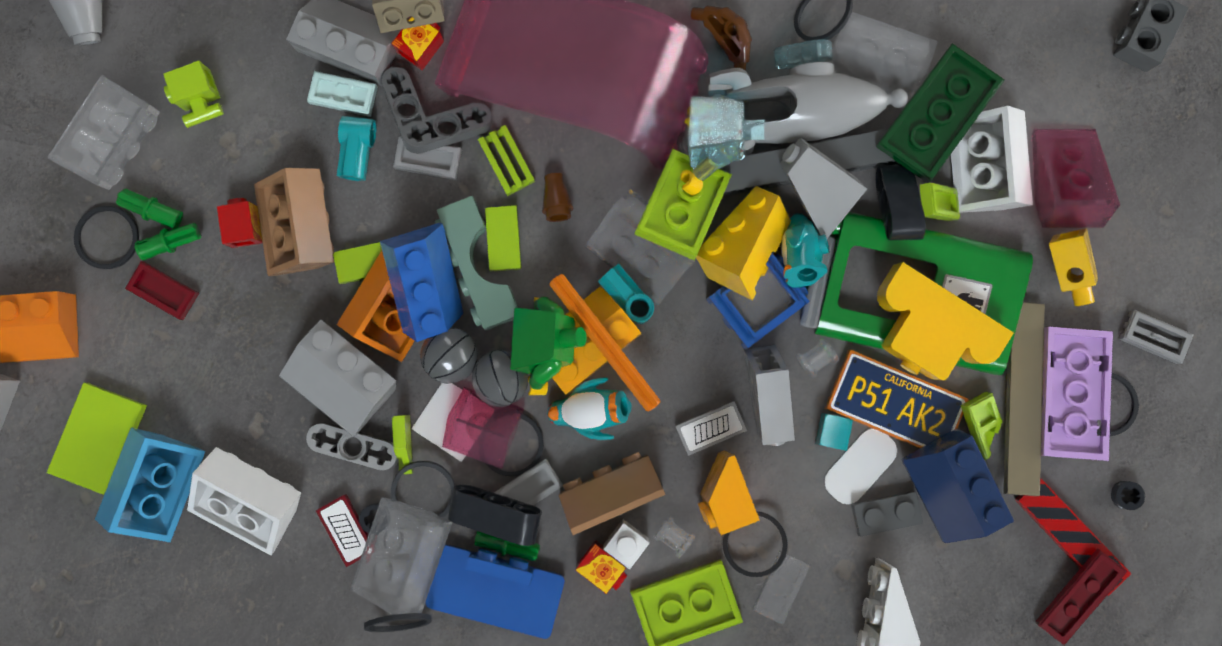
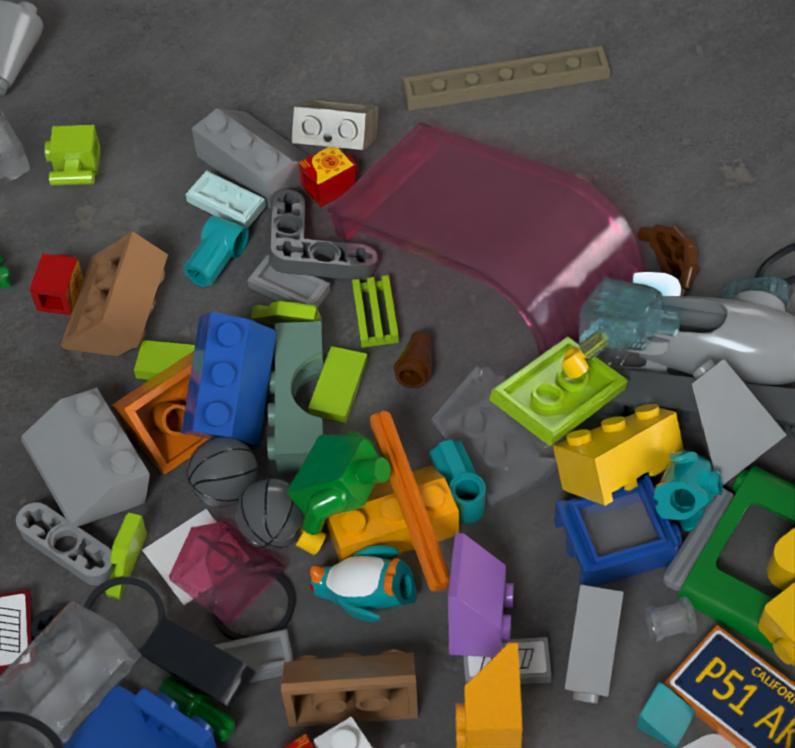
camera: 25 degrees right, 30 degrees down
(438, 190) = (285, 312): none -> lime tile
(680, 399) = (477, 601): none -> medium lavender slope

